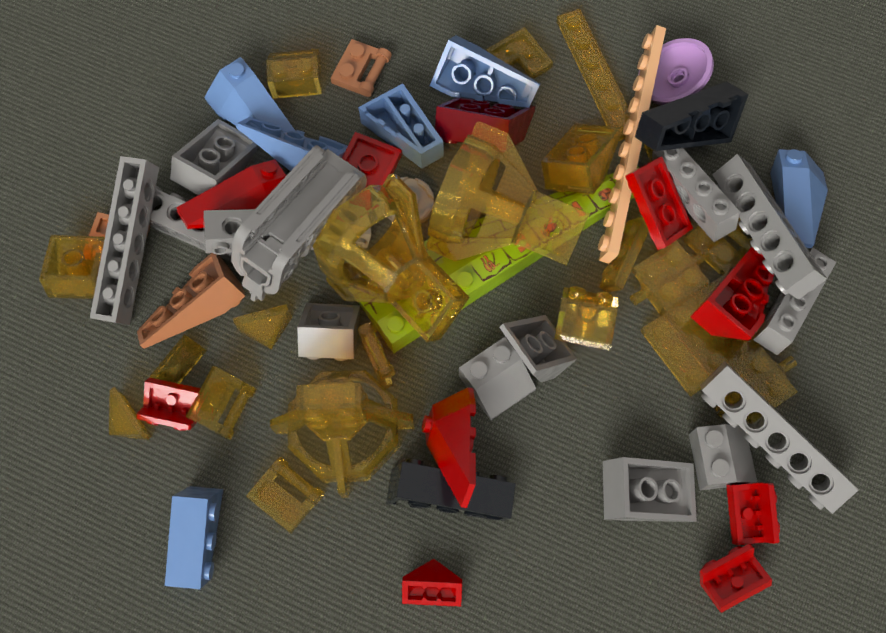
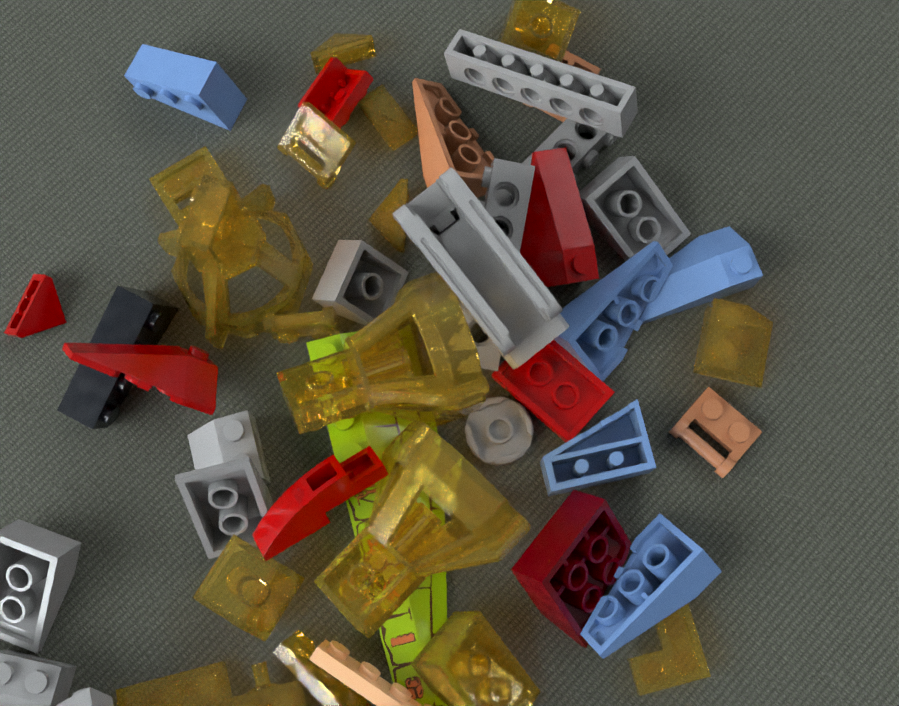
camera: 110 degrees right, 5 degrees up
(509, 287) = (305, 503): none -> red slope

